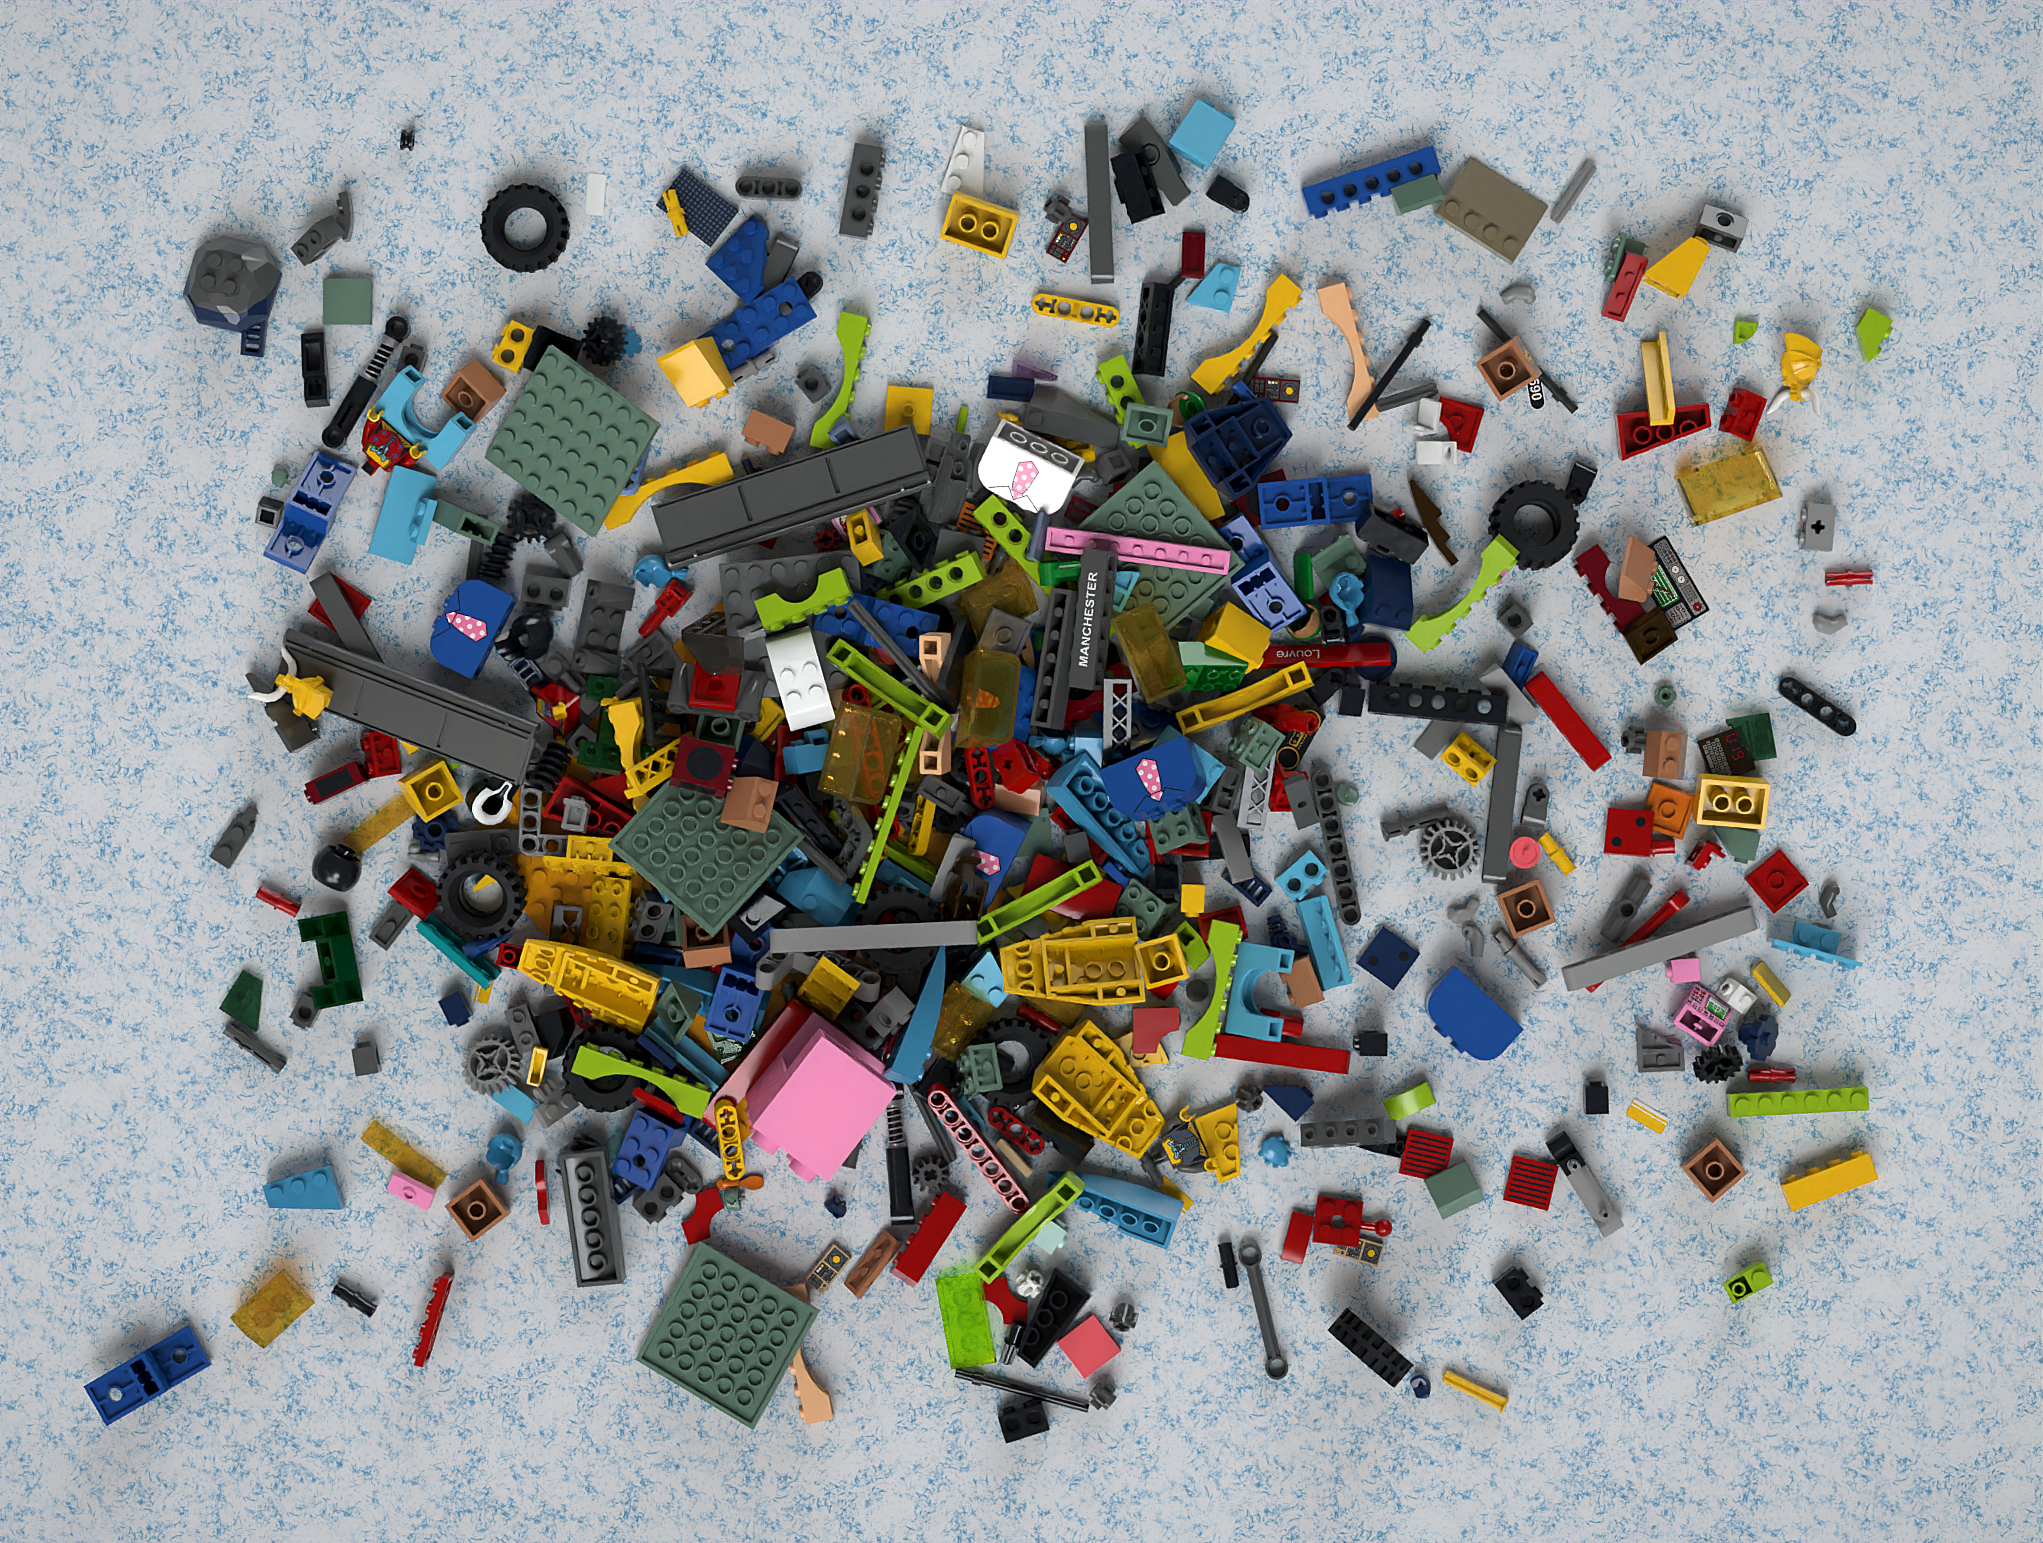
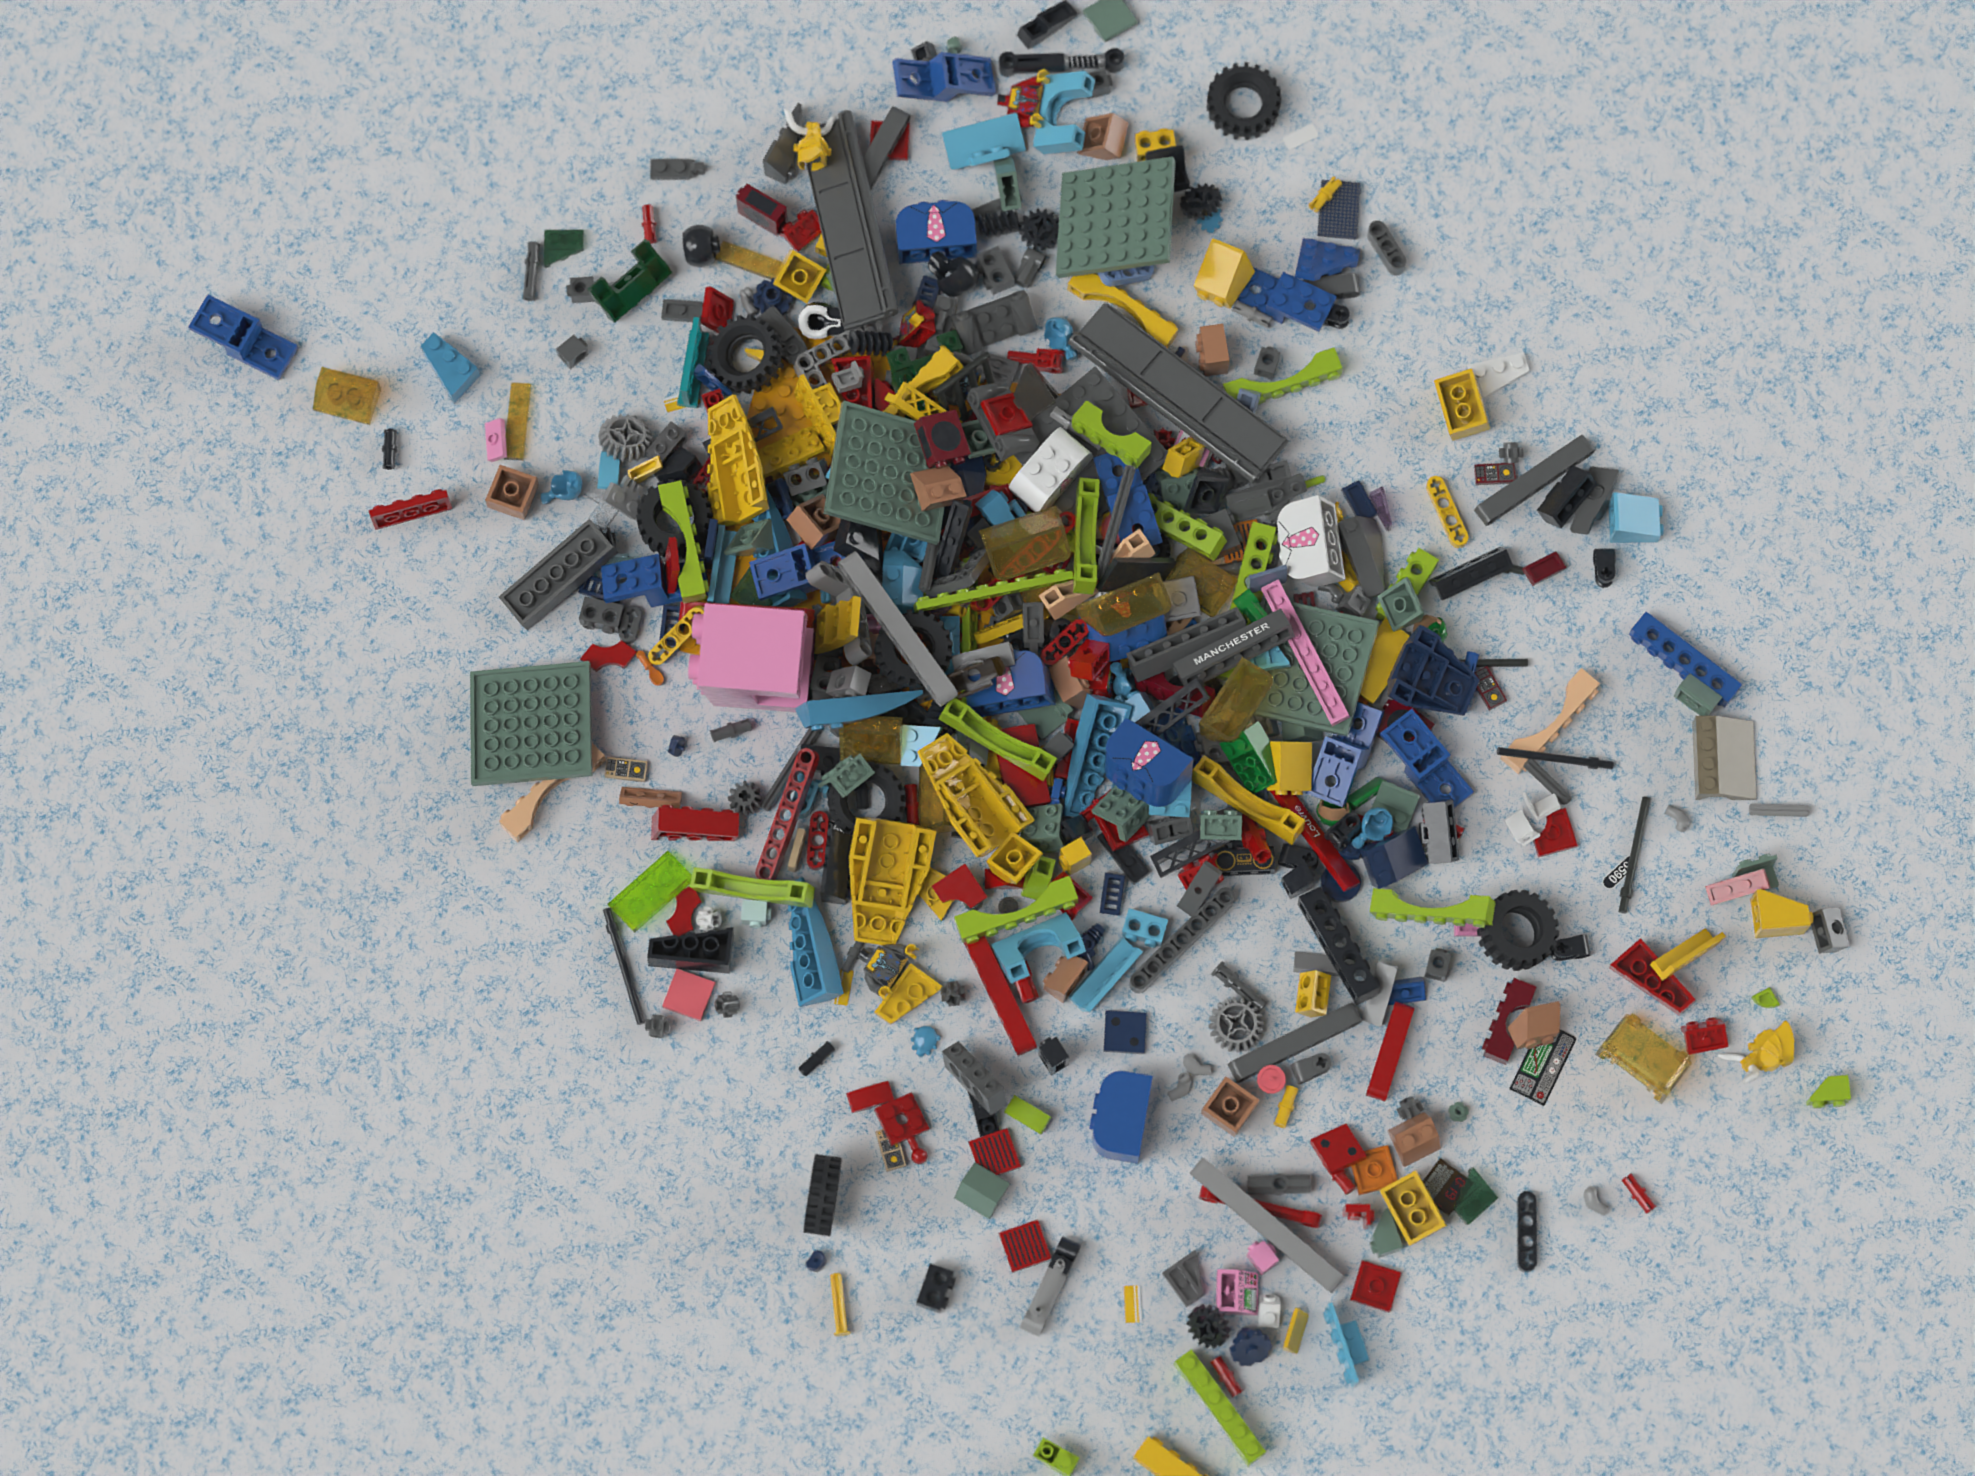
camera: 60 degrees right, 15 degrees down
(456, 1009) = (650, 390): dark blue brick -> none
(542, 1192) = (562, 524): red tile -> none
(732, 1199) = (635, 669): sand green piece -> none
(862, 155) = (1454, 296): dark grey brick -> none
(898, 1164) = (706, 792): black piece -> none
(909, 406) = (1301, 440): yellow plate -> none
(1012, 1342) = (643, 938): black axle -> none
(1026, 1427) = (597, 984): black brick -> none
(1214, 371) = (1471, 635): yellow arch -> none
(1217, 288) = (1532, 601): medium azure wing -> none
(1232, 848) = (1131, 863): light grey slope -> none
(1263, 1312) = (797, 1107): dark grey piece -> none
(1290, 1098) = (972, 1025): dark blue slope -> none
(1346, 795) = (1225, 924): sand green piece -> none
(1428, 514) = (1472, 854): dark brown slope -> none
(1508, 368) = (1619, 840): nougat brick -> none
(1519, 958) = (1191, 1120): light grey pin -> none
(1595, 1098) = (1121, 1253): black brick -> none
(1649, 635) = (1495, 1069): dark brown tile -> none
(1713, 1169) = (1125, 1375): nougat brick -> none
(1825, 517) = (1672, 1143): light grey brick -> none
(1827, 898) = (1388, 1332): dark grey arm -> none

